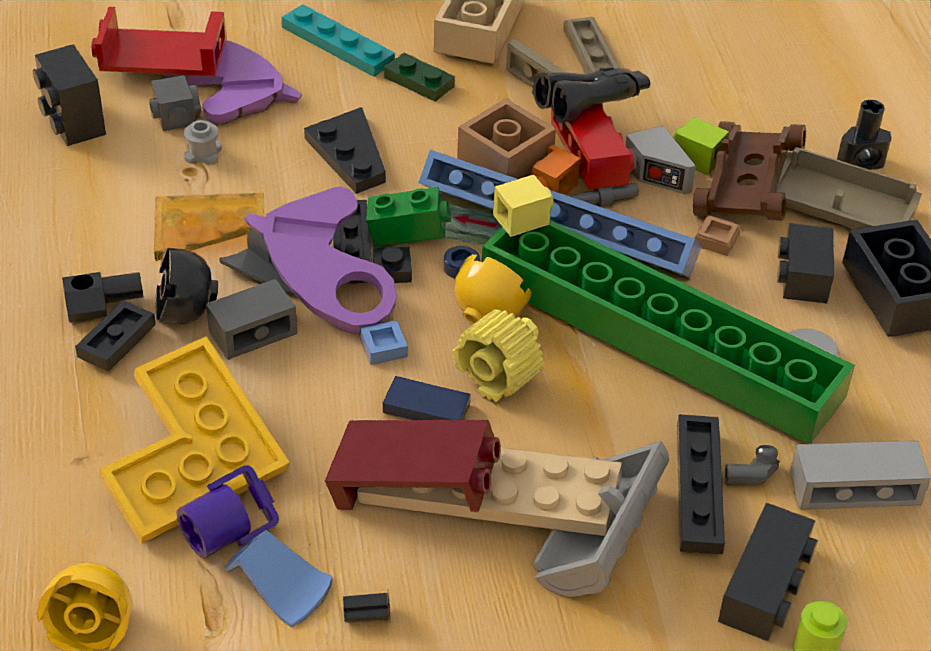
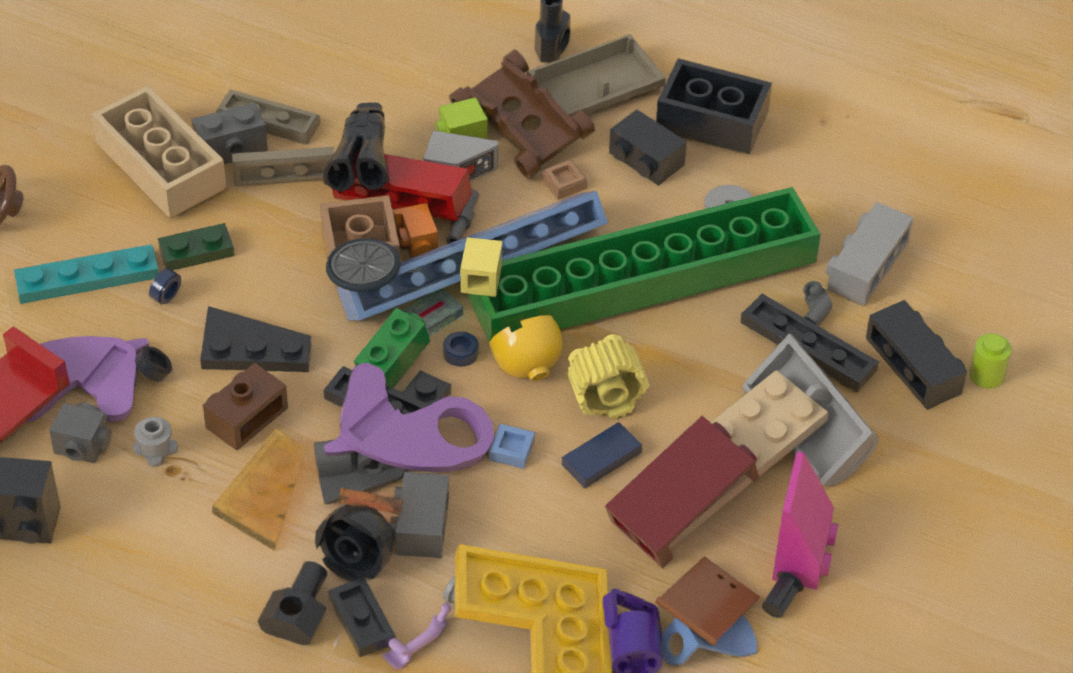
camera: 55 degrees left, 5 degrees up
(97, 377) = (401, 654): none -> lavender piece
(221, 269) = (364, 498): none -> clear orange tile
(275, 106) = (153, 363): none -> black tile
(276, 169) = (245, 406): none -> reddish brown brick
(305, 548) = (708, 600): none -> dark orange container
(358, 76) = (165, 286): none -> dark blue tile
(440, 564) = (805, 527): none -> dark pink slope
(460, 145) = (363, 265): none -> dark grey wheel
(543, 32) = (233, 131): none -> dark grey brick

